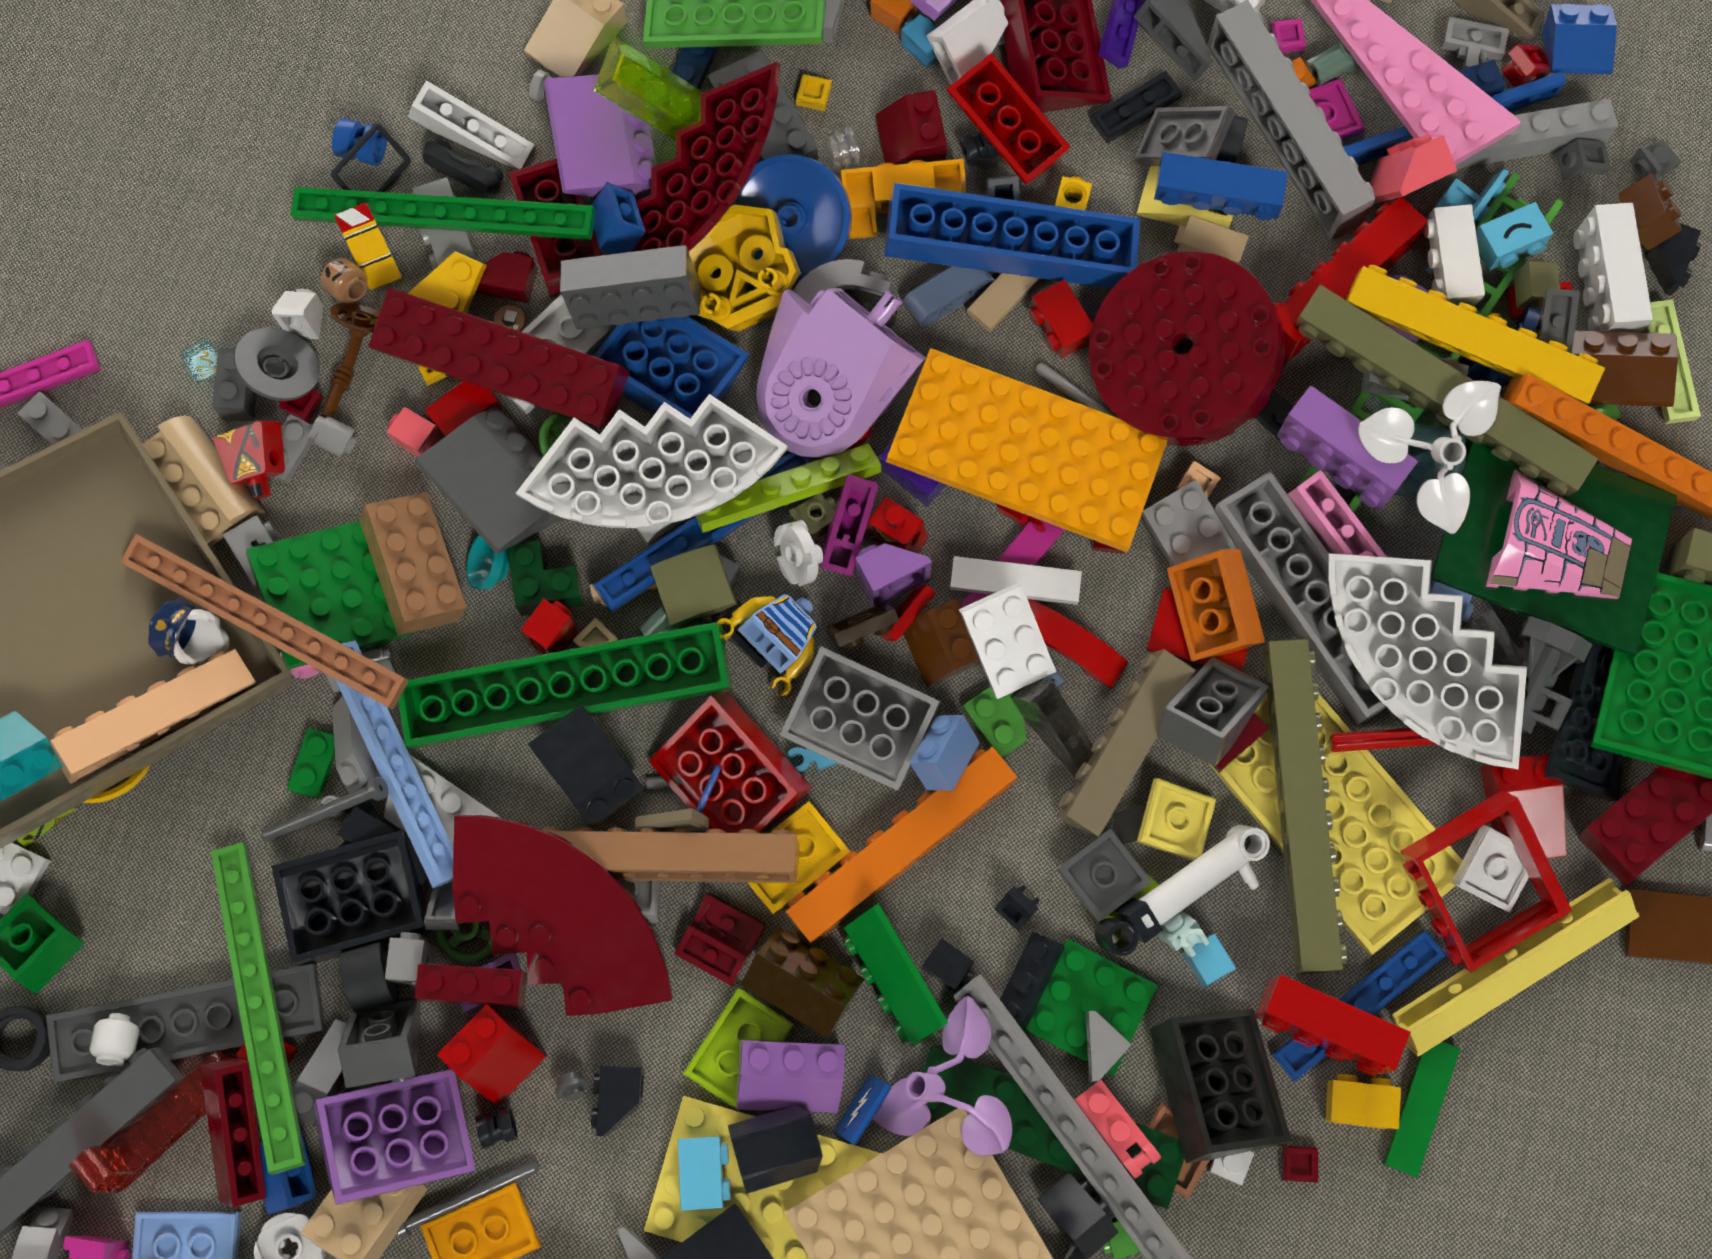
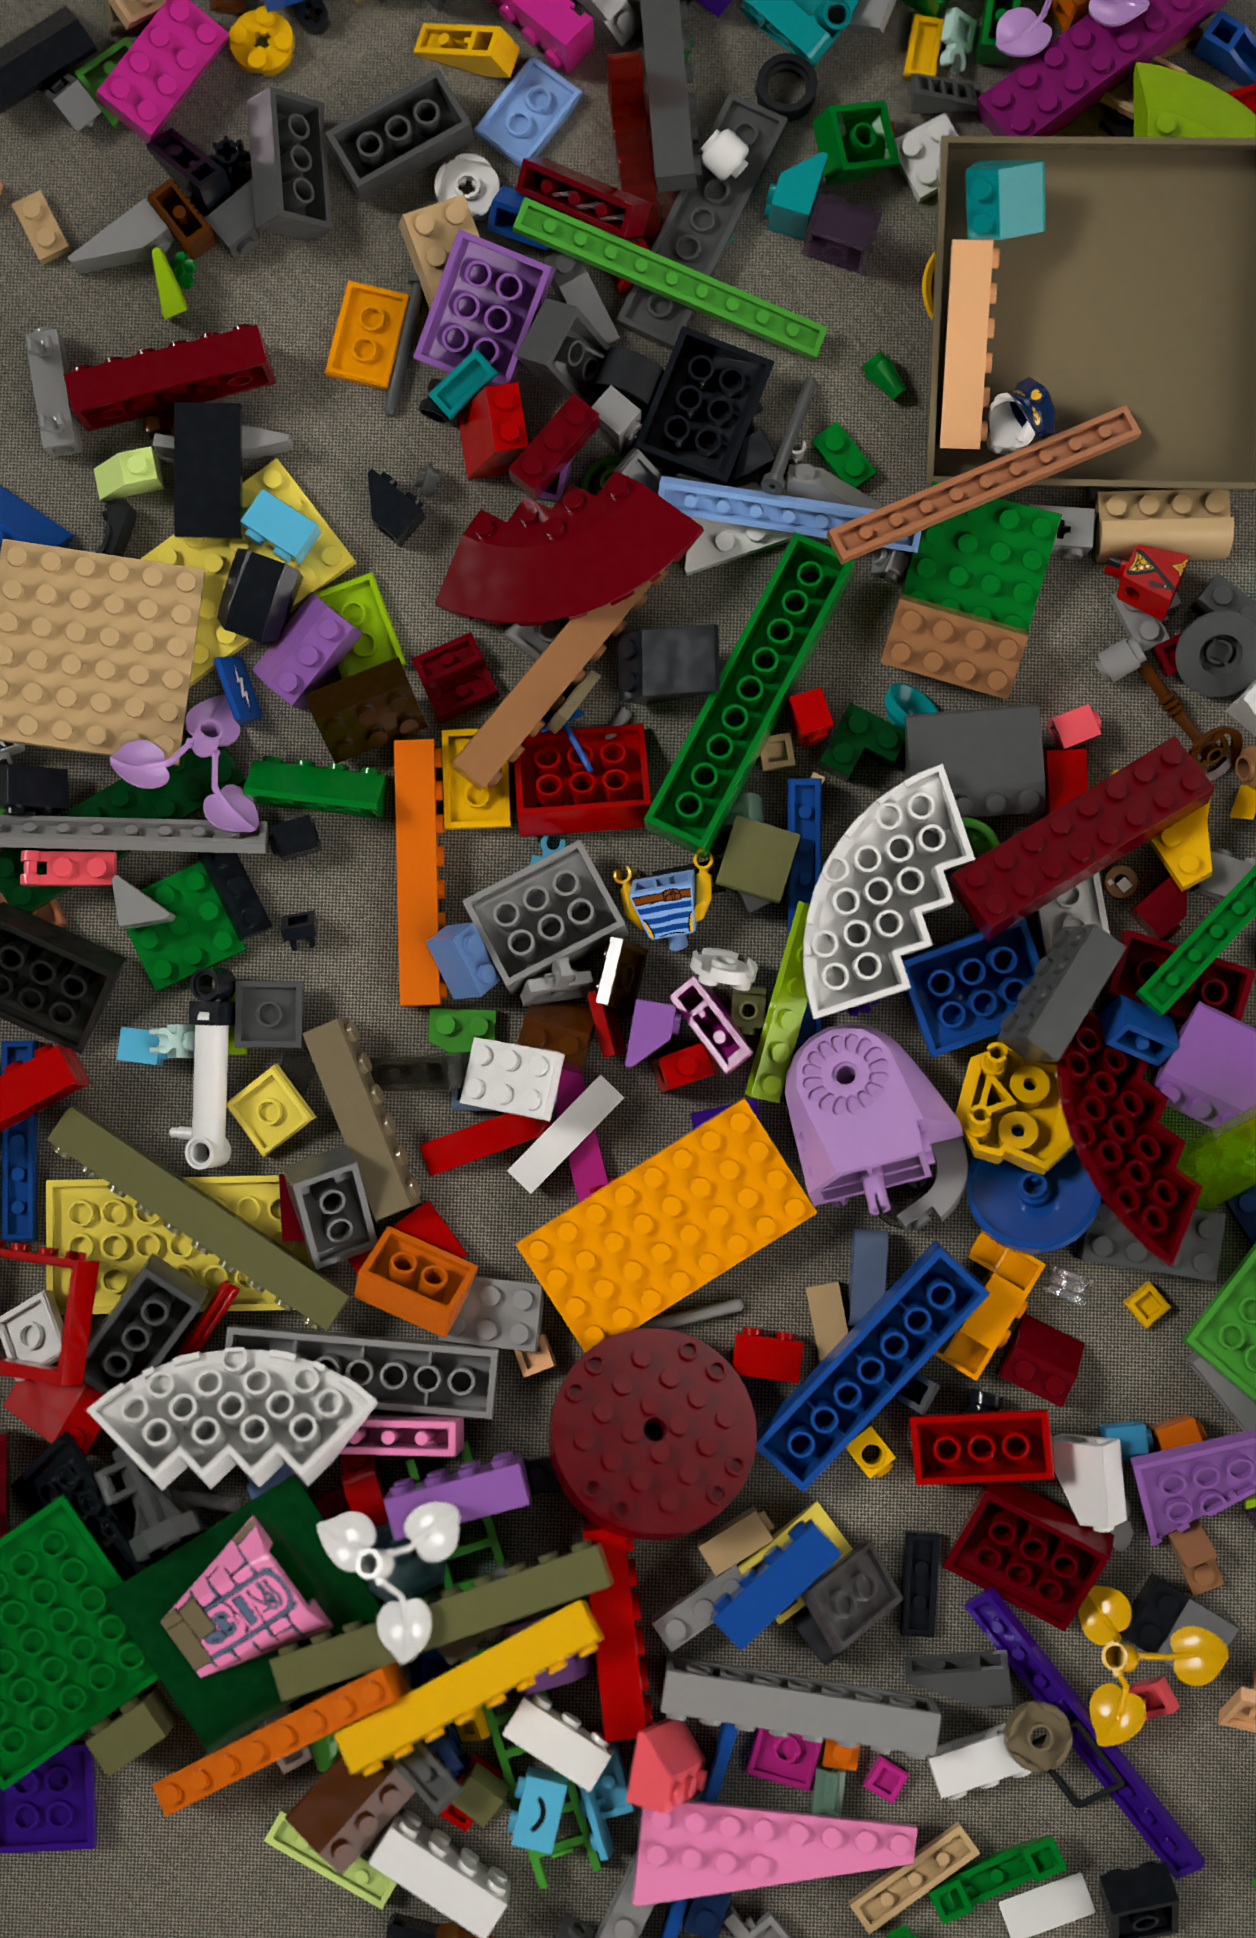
camera: 125 degrees right, 10 degrees up
(117, 951) = (795, 196): none -> teal slope
(120, 894) = (841, 233): none -> clear purple brick
(221, 780) = (883, 375): none -> green cone
(468, 1109) = (463, 383): none -> teal tile
(901, 664) = (556, 986): none -> light grey hinge
(1295, 238) = (691, 1614): none -> light grey arch
(1398, 527) = (364, 1486): none -> red brick
(1418, 782) = (142, 1325): none -> dark grey brick
(1424, 545) = (333, 1503): none -> dark red tile

